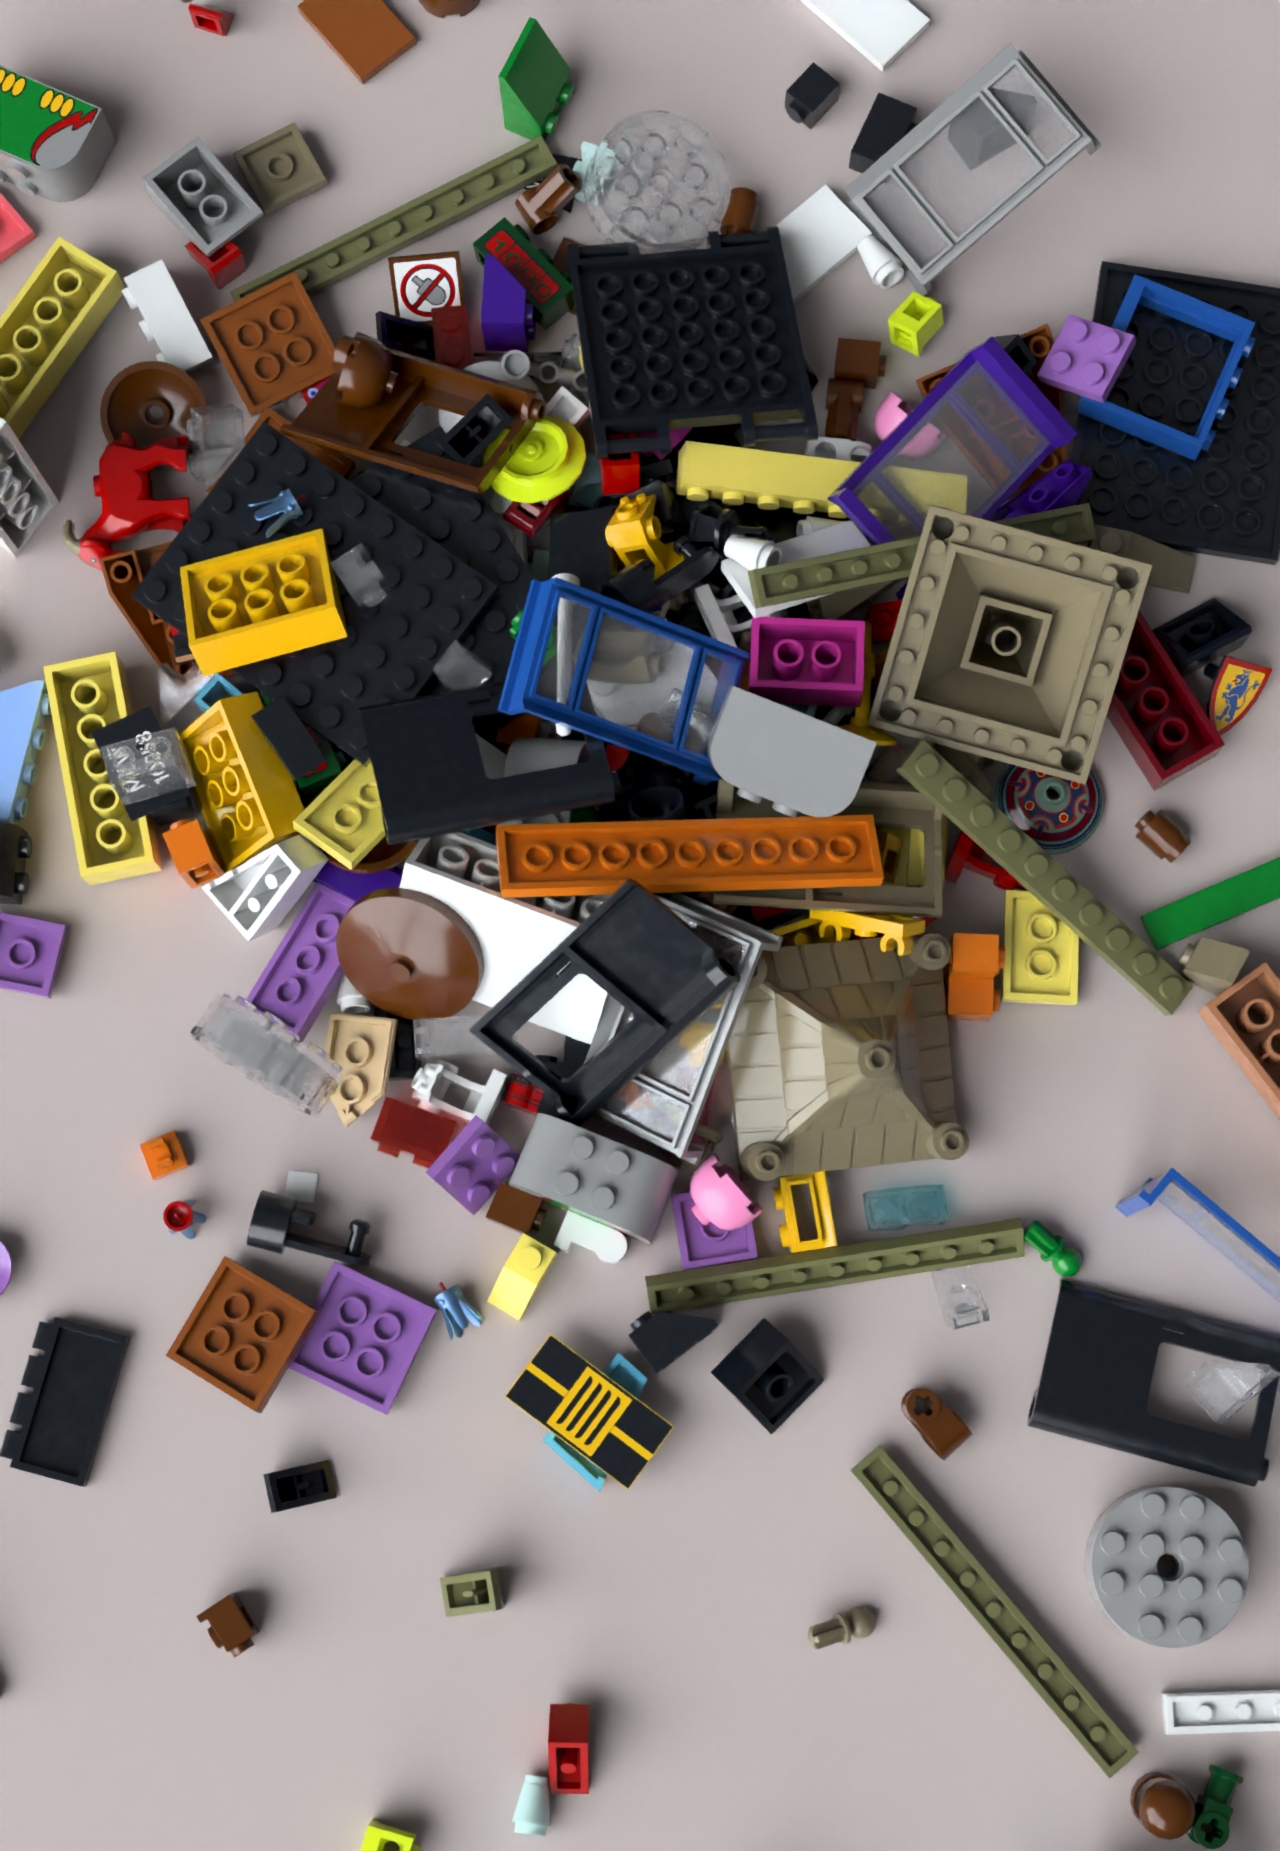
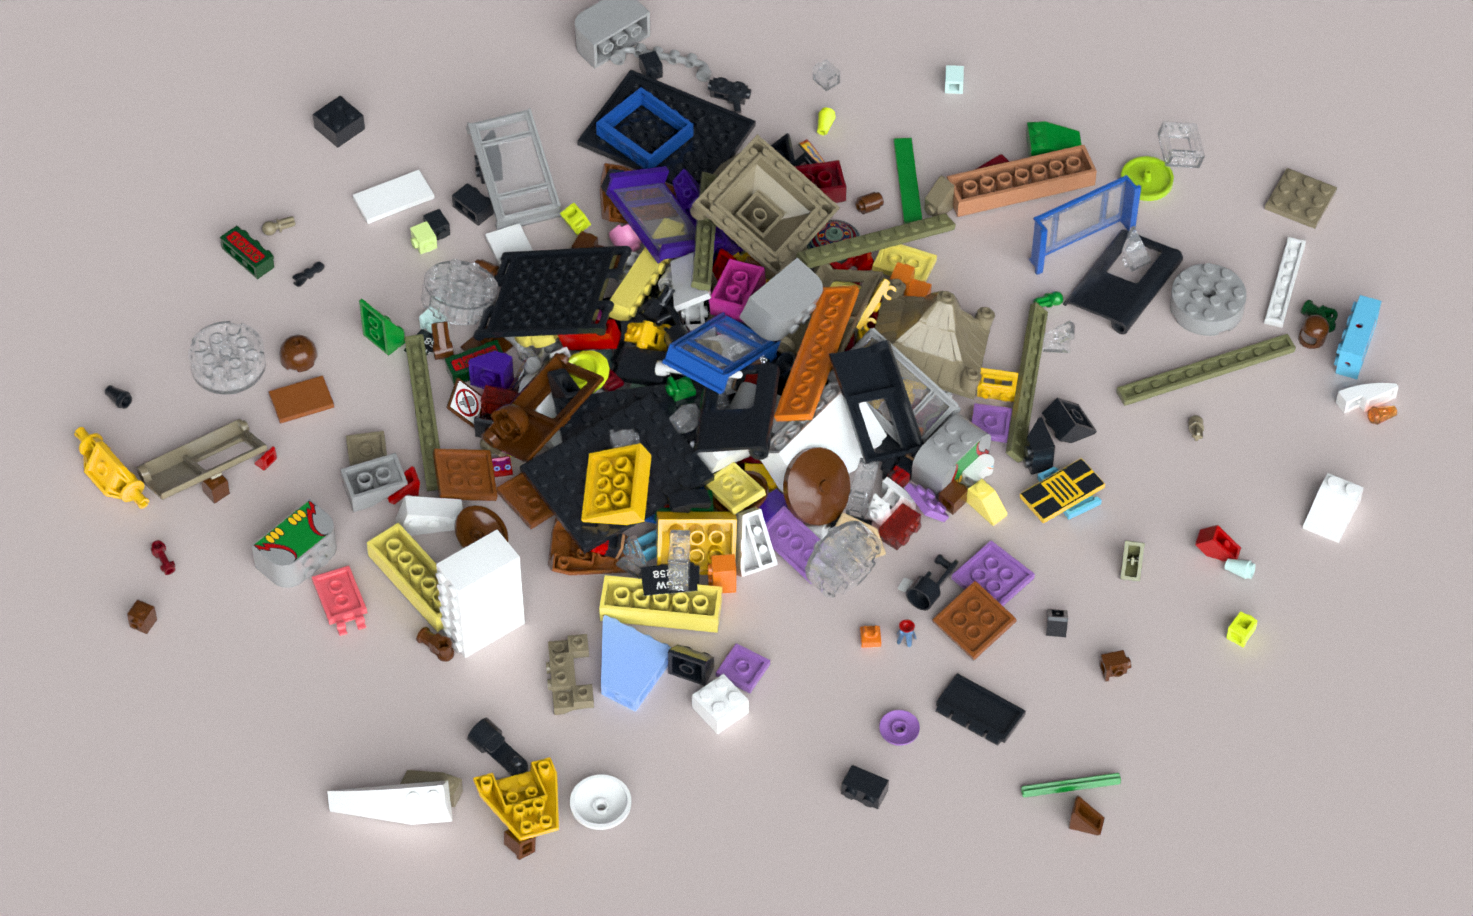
camera: 75 degrees left, 25 degrees down
(128, 497) = (529, 556): red animal -> none
(215, 439) = (507, 511): clear slope -> none
(284, 503) = (573, 463): flat silver piece -> none
(456, 1309) = (993, 533): flat silver piece -> none
(721, 1196) = (980, 403): bright pink cylinder -> none
(752, 552) = (678, 290): white cone -> none
(769, 84) = (423, 238): none -> yellowish green brick
(880, 262) = (536, 224): white cone -> none
(905, 1207) = (1008, 347): clear light blue slope -> none
(939, 1426) = (1115, 365): reddish brown piece -> none
(1086, 358) = (630, 151): medium lavender plate -> none

